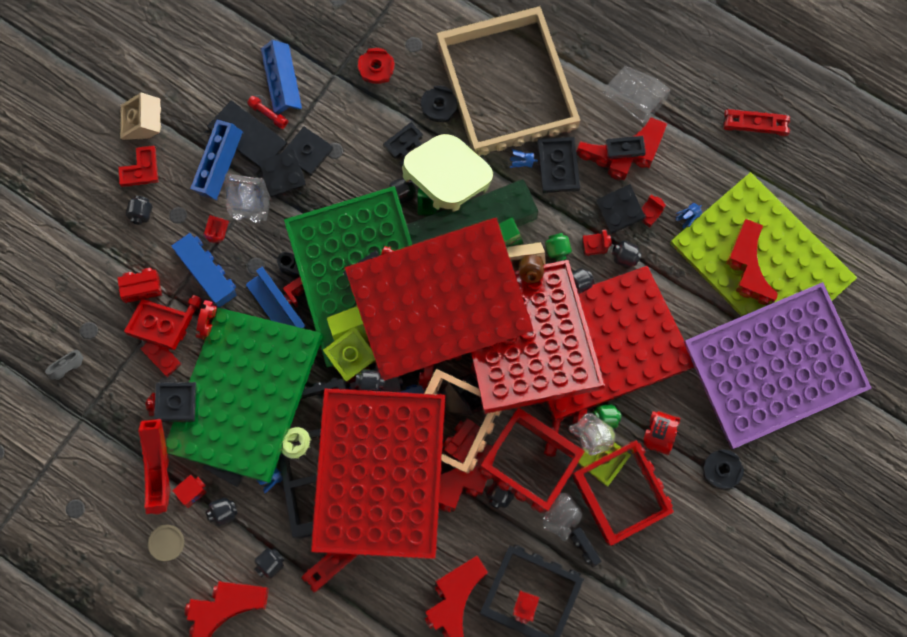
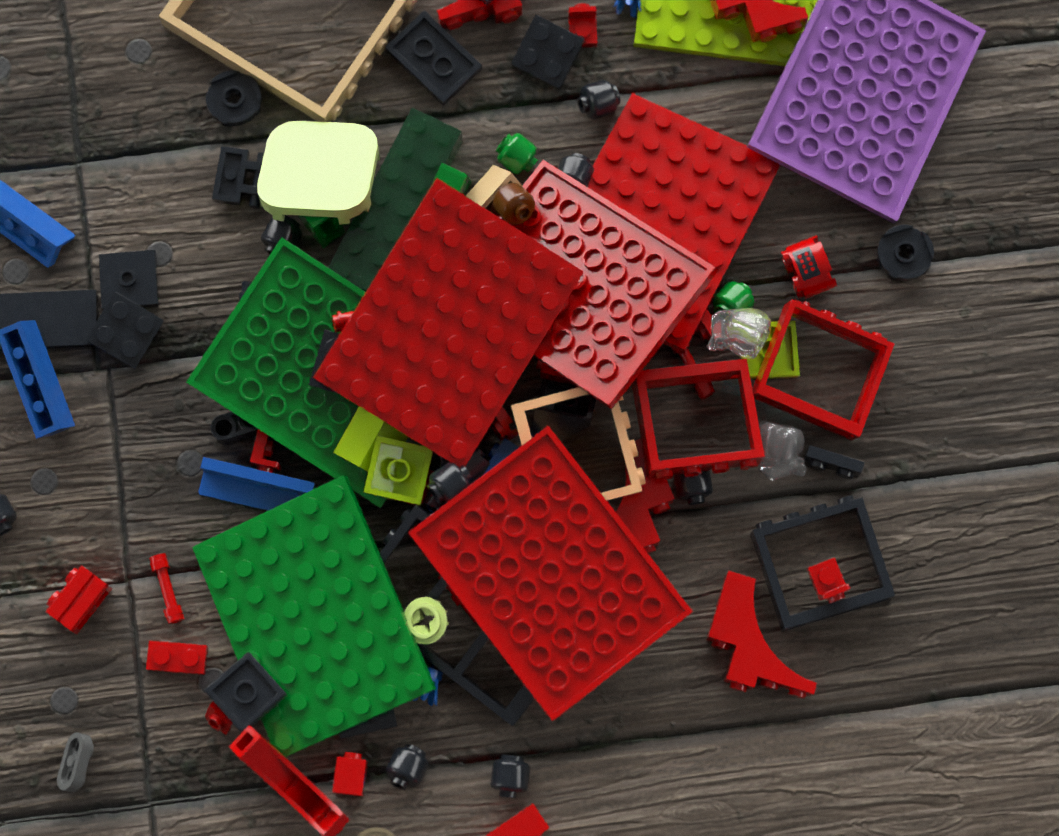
camera: 40 degrees left, 5 degrees up
(158, 324) = (142, 624): red plate -> none
(204, 270) = (137, 517): blue brick -> none
(204, 319) = (189, 565): red plate -> none
(215, 229) = (106, 460): red plate -> none
(247, 197) = (114, 394): clear slope -> none
(279, 120) = (16, 275): red bar -> none
(327, 568) = (578, 726): red plate -> none
(379, 75) = (103, 113): red plate -> none
(461, 443) = (604, 459): red brick -> none
(524, 159) = (390, 83): blue piece -> none
(596, 243) = (554, 114): red bracket -> none

